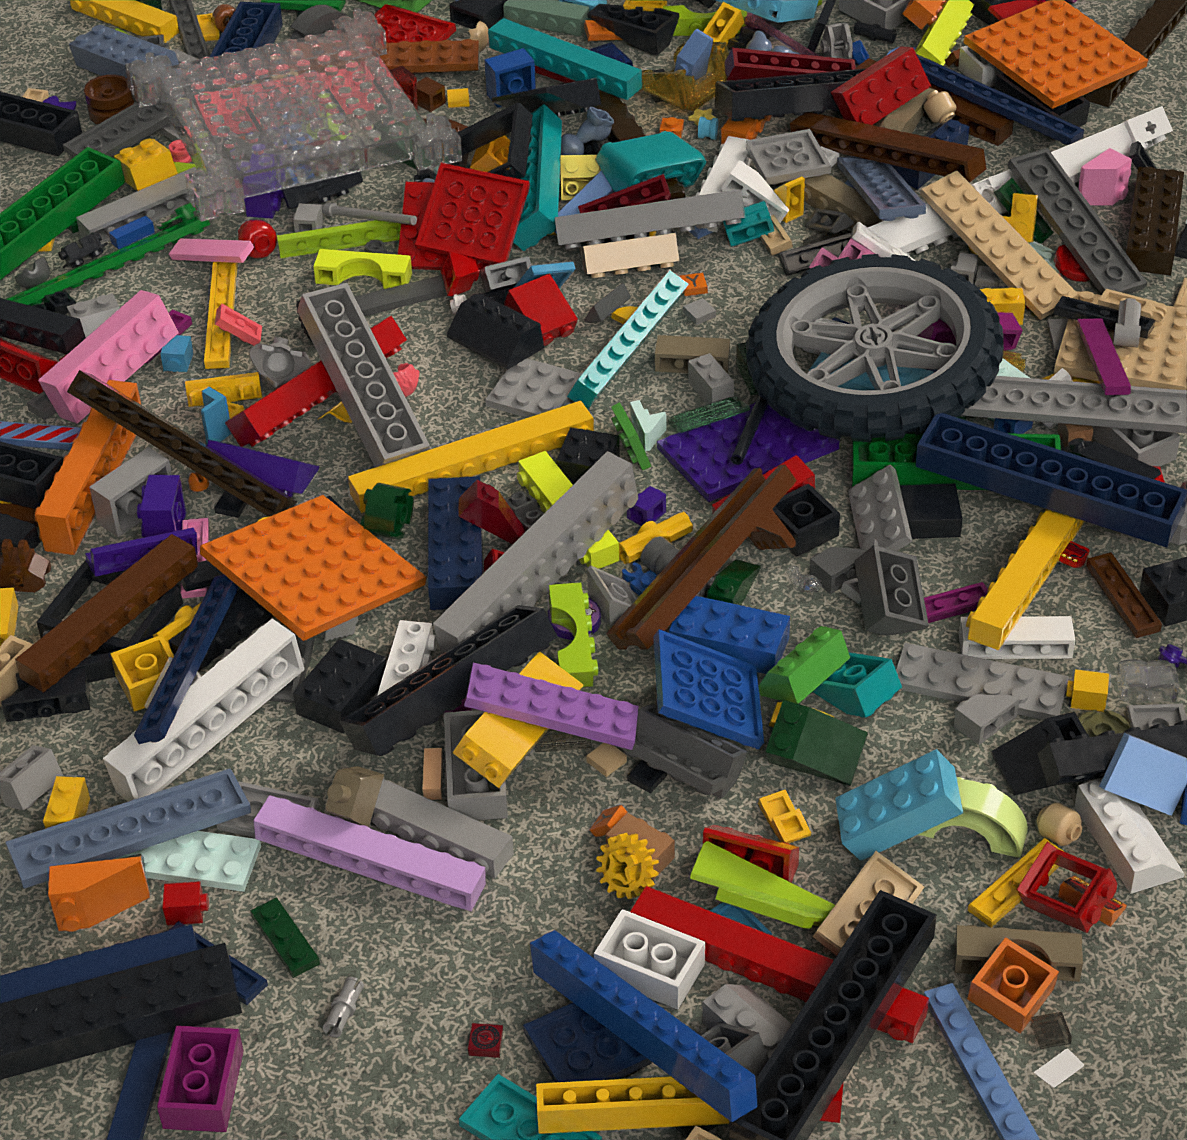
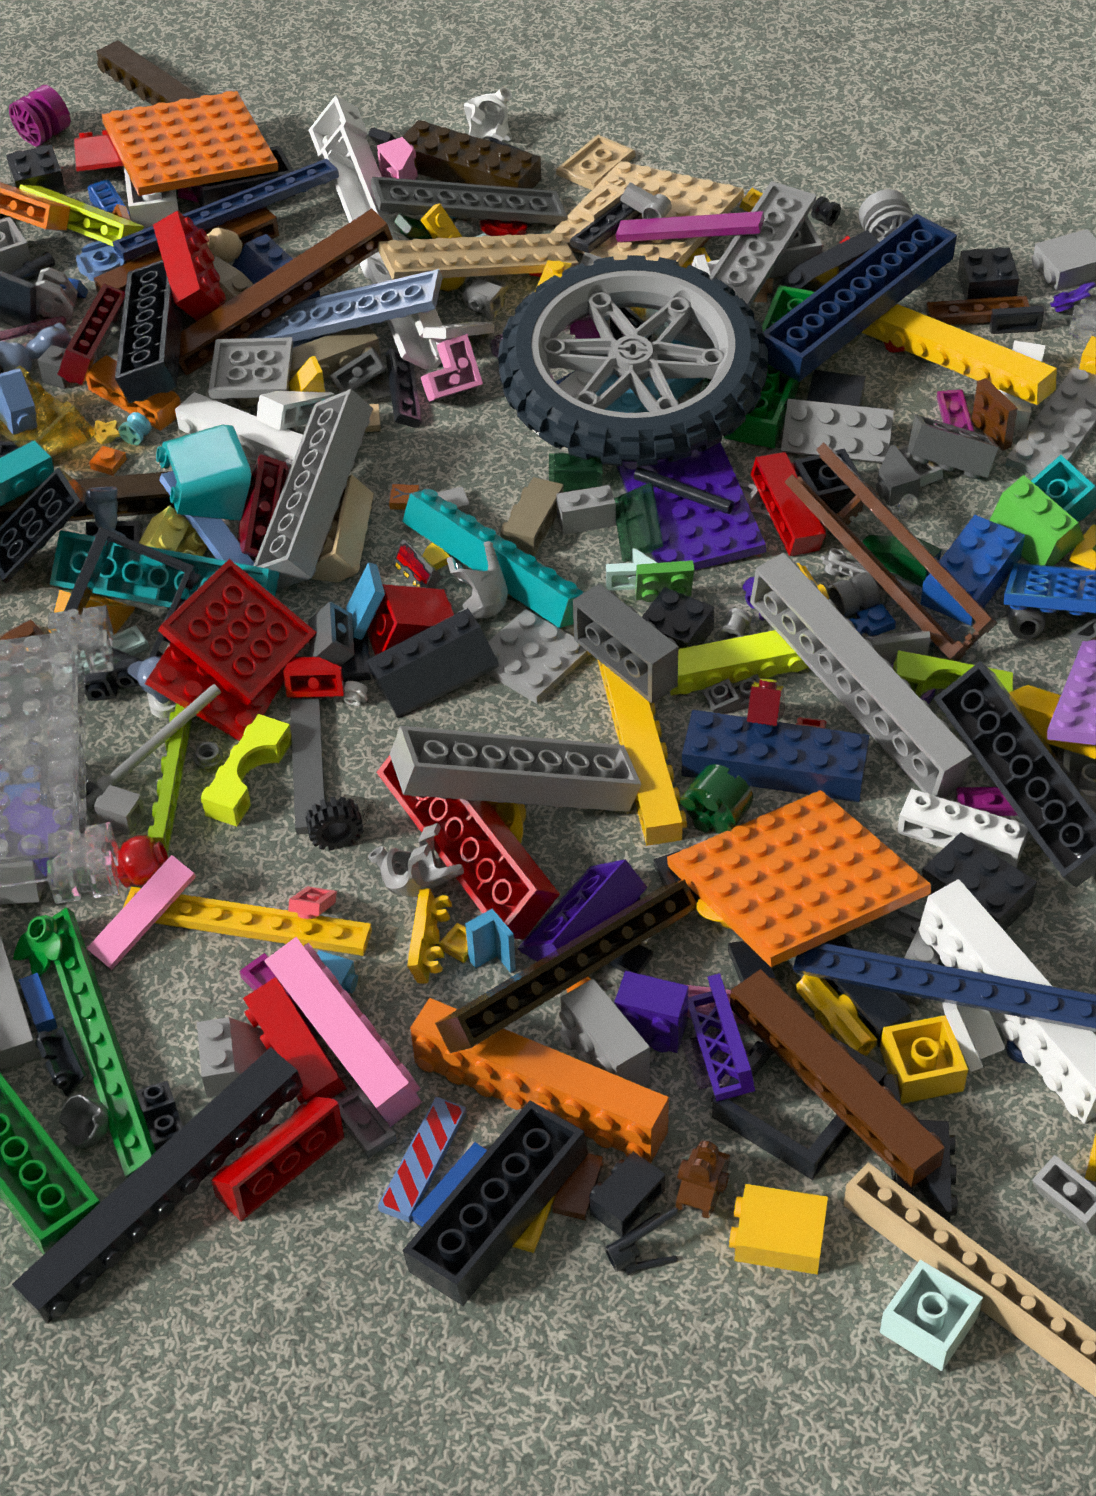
camera: 75 degrees left, 5 degrees up
(524, 413) = (625, 643): none -> dark grey brick
(579, 339) = (488, 586): none -> light grey piece
(945, 614) = (994, 414): none -> reddish brown plate
(1120, 622) = (1016, 320): none -> black tile

